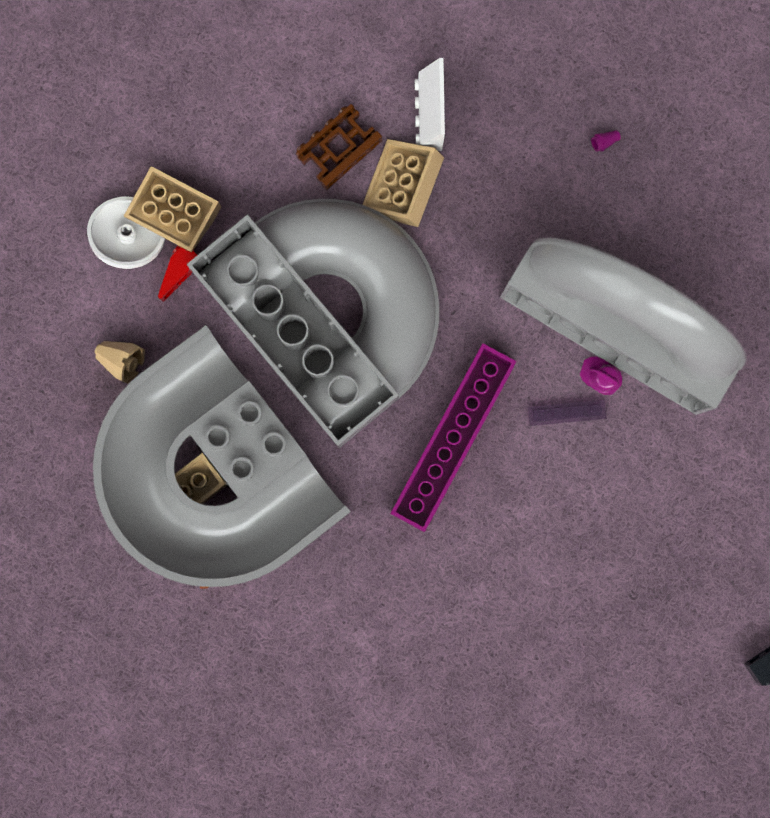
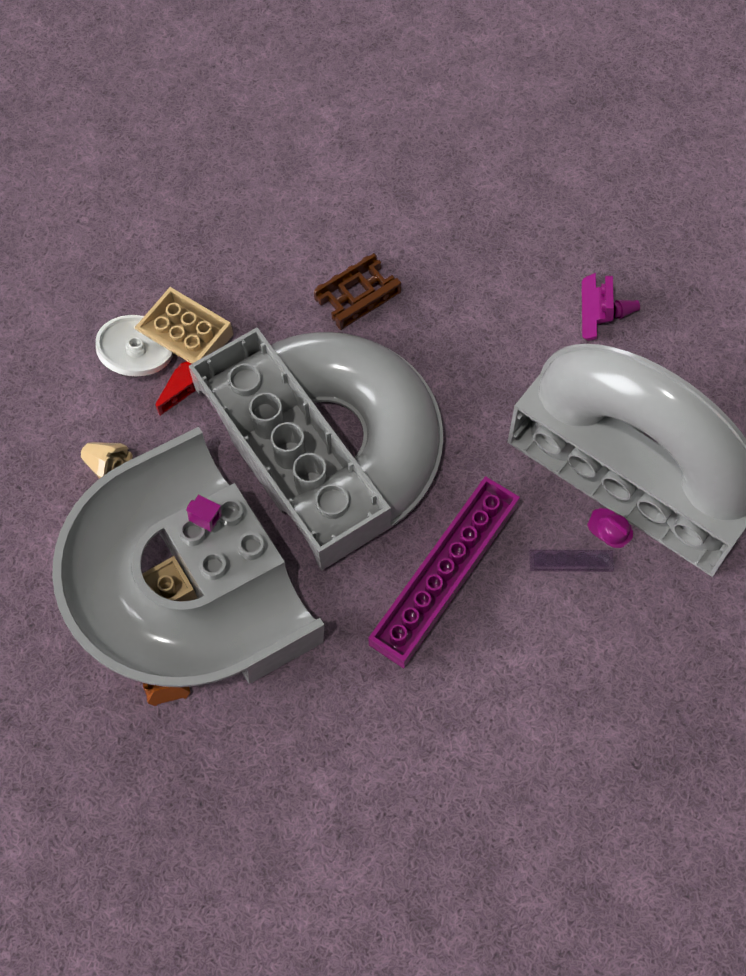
camera: 10 degrees right, 20 degrees down
(226, 422) = (204, 512): none -> magenta brick
(403, 181) = (420, 326): tan slope -> none
(430, 105) = (451, 262): white slope -> none
(577, 140) = (596, 305): none -> magenta plate

